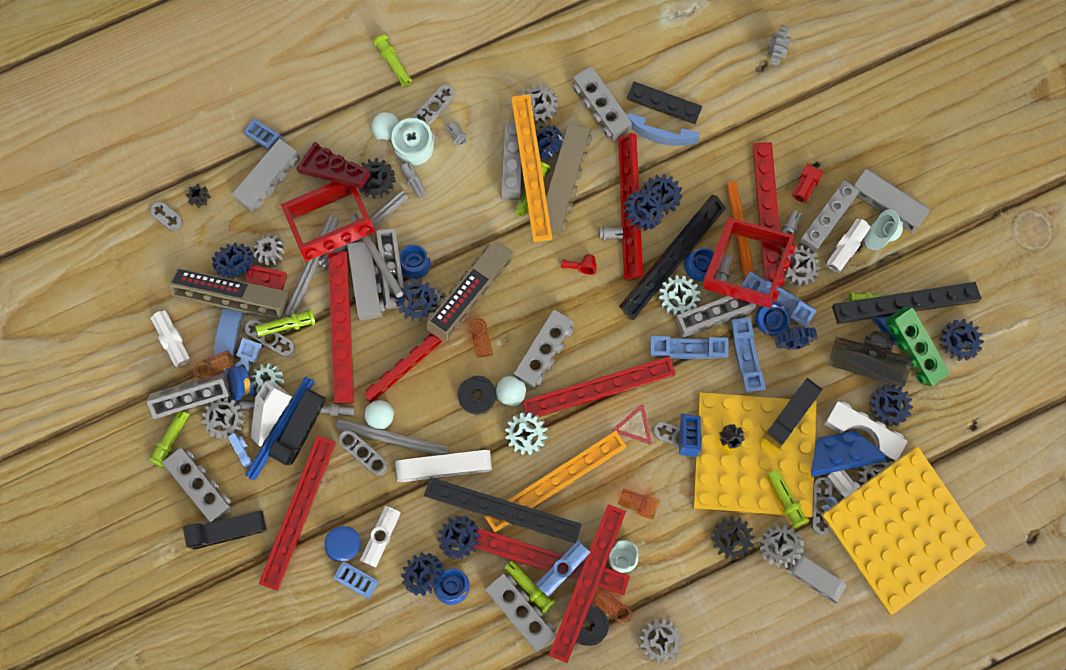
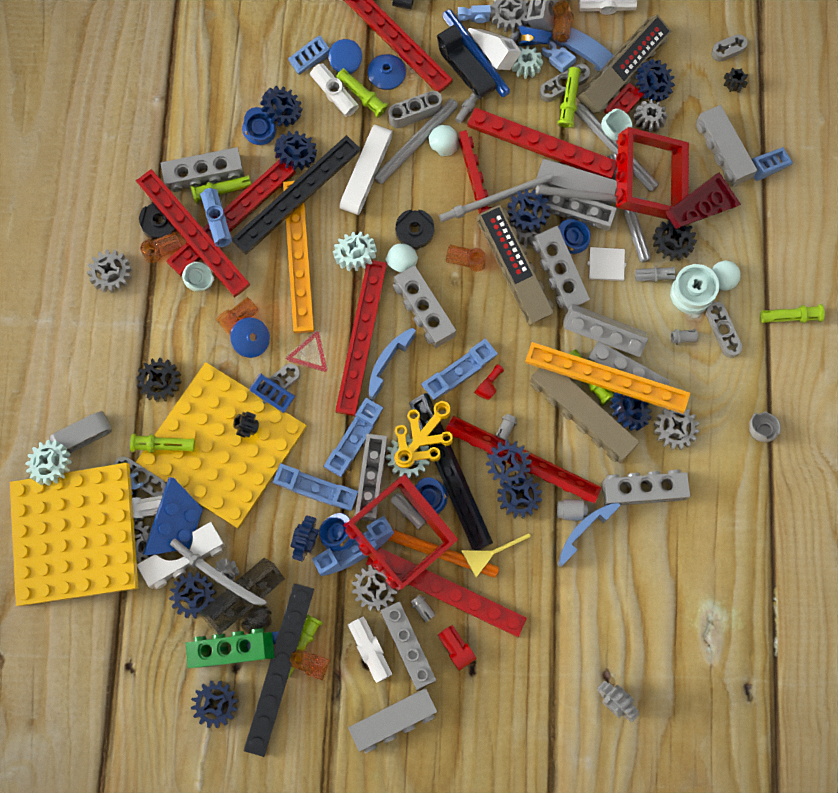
camera: 115 degrees right, 0 degrees up
(294, 269) = (615, 123): none -> light aqua hair
(342, 509) = (386, 79): none -> blue dish
(373, 500) = (368, 98): none -> lime pin
(423, 224) = (606, 264): none -> white piece
(445, 359) = (460, 211): none -> light grey bar
(468, 231) = (562, 257): none -> light grey brick
(488, 191) = (605, 330): none -> light grey brick
(501, 39) = (764, 427): none -> light grey hair
(583, 294) = (460, 370): none -> medium blue slope
(634, 354) = (401, 342): none -> medium blue slope
(650, 150) = (572, 509): none -> light grey brick
(650, 486) = (241, 337): none -> blue dish
(662, 289) = (422, 438): none -> yellow plant
(664, 102) = (616, 554): black plate -> none
(730, 199) = (478, 559): none -> light yellow piece
(788, 550) = (119, 411): light grey gear -> none
(792, 413) = (234, 491): black beam -> none
(857, 389) = (227, 568): none -> light grey gear
(858, 593) = (48, 462): none -> light aqua gear
(866, 412) = (196, 560): none -> light grey sword
(885, 229) = (365, 693): light aqua piece -> none
(888, 281) = (311, 664): none -> clear orange piece

